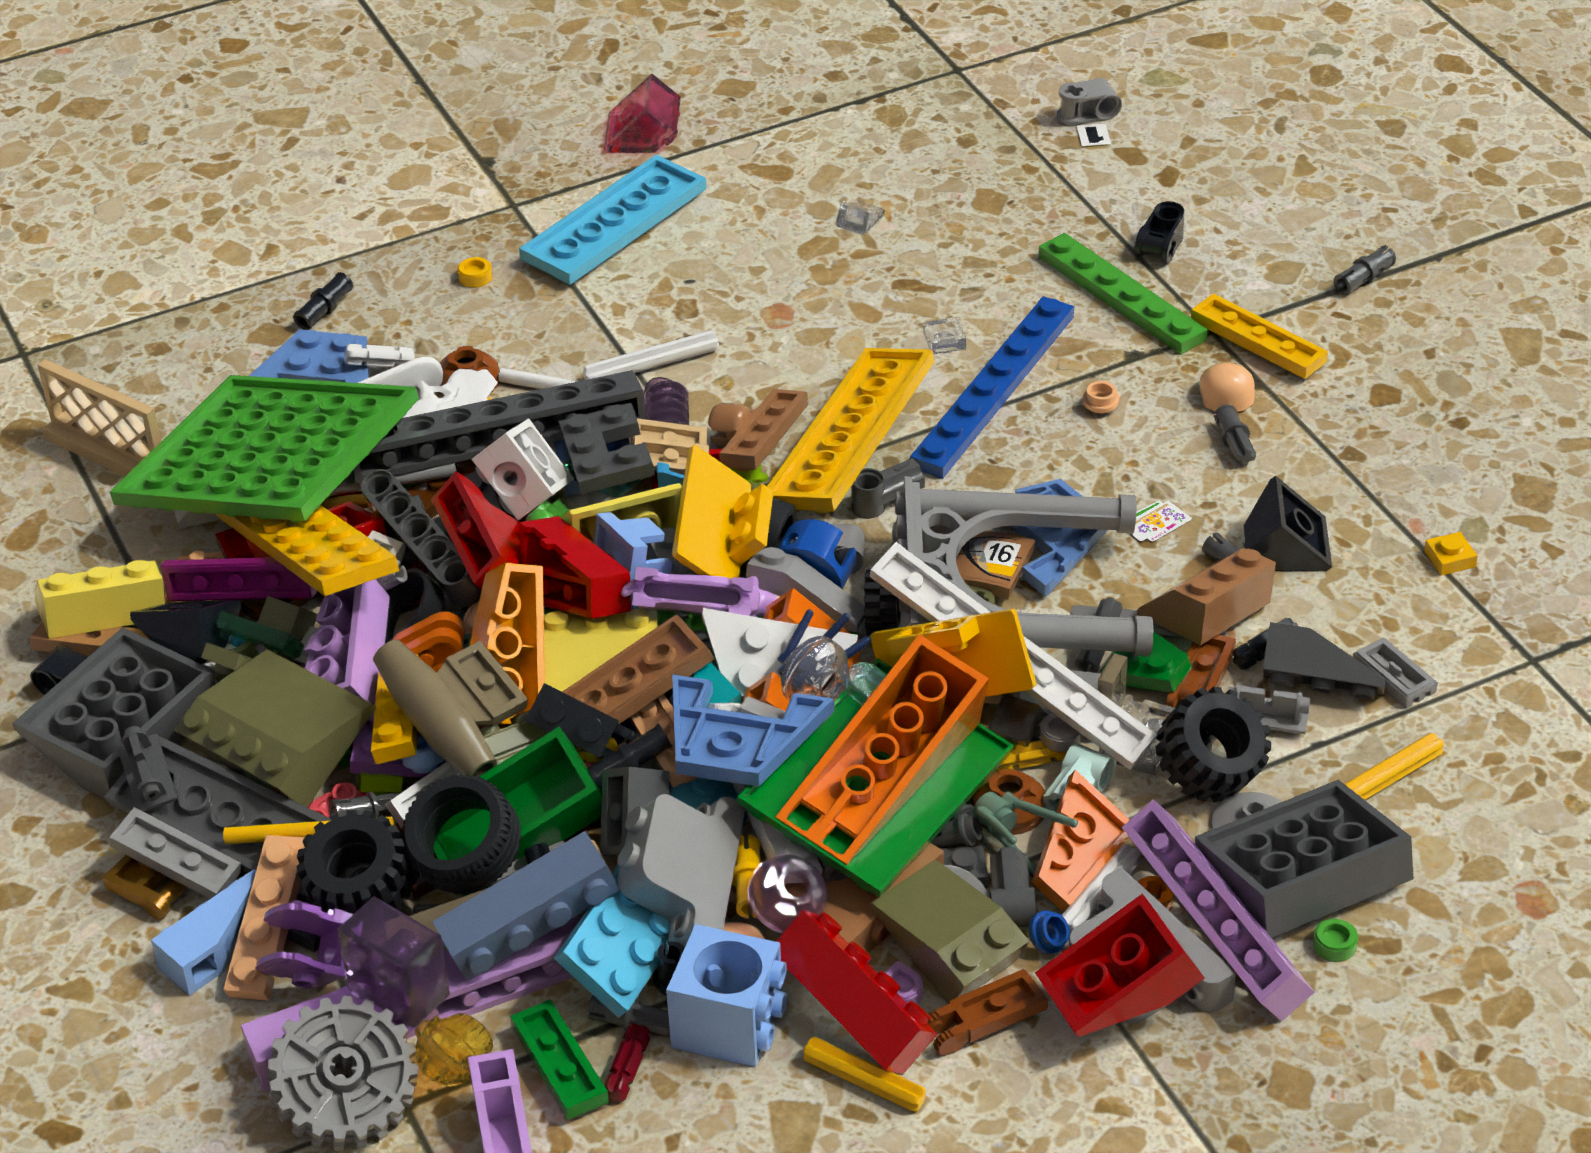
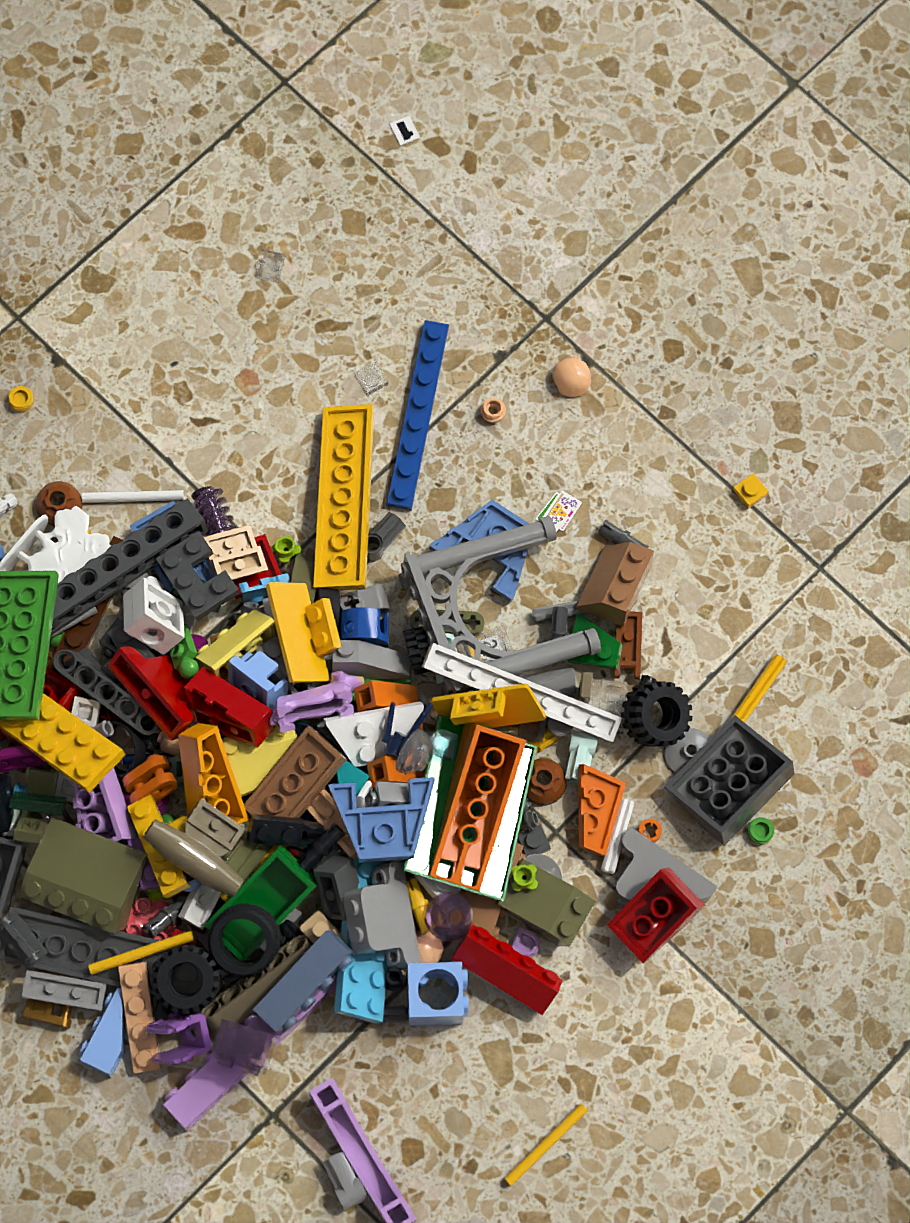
camera: 25 degrees left, 30 degrees up
(330, 1105) = (231, 1140): light grey piece -> none
(447, 1044) = (291, 1077): clear yellow piece -> none
(559, 1059) = (351, 1060): green plate -> none
(612, 219) = (99, 319): medium azure plate -> none
(626, 1062) = (389, 1048): dark red axle -> none
(643, 119) = (80, 207): clear pink slope -> none
(654, 356) = (179, 454): white axle -> none
(753, 433) = (280, 510): medium nougat plate -> none
(864, 1074) = (526, 1014): yellow axle -> none
(925, 872) = (524, 870): none -> lime plate
(986, 1011) = (583, 948): dark orange hinge -> none
(994, 561) = (474, 588): slope -> none
(999, 817) = (544, 807): sand green plant -> none
(1011, 885) = (570, 861): dark grey piece -> none
(1048, 932) = (599, 879): blue plate -> none
(1088, 100) = (393, 103): light grey piece -> none
(1123, 293) = (475, 298): bright green plate -> none
(1161, 232) = (486, 238): black piece -> none
(1218, 911) = (692, 838): lavender brick -> none
(1235, 434) = (589, 421): dark grey axle -> none
(1246, 655) = (659, 604): black axle -> none
(1259, 336) = (579, 320): yellow plate -> none
(1281, 713) = (675, 663): light grey hinge -> none
(1288, 530) = (648, 506): black slope -> none
(1309, 658) = (689, 617): dark grey slope -> none
(1364, 270) = (631, 232): dark grey pin -> none
(1396, 683) = (737, 613): light grey tile -> none

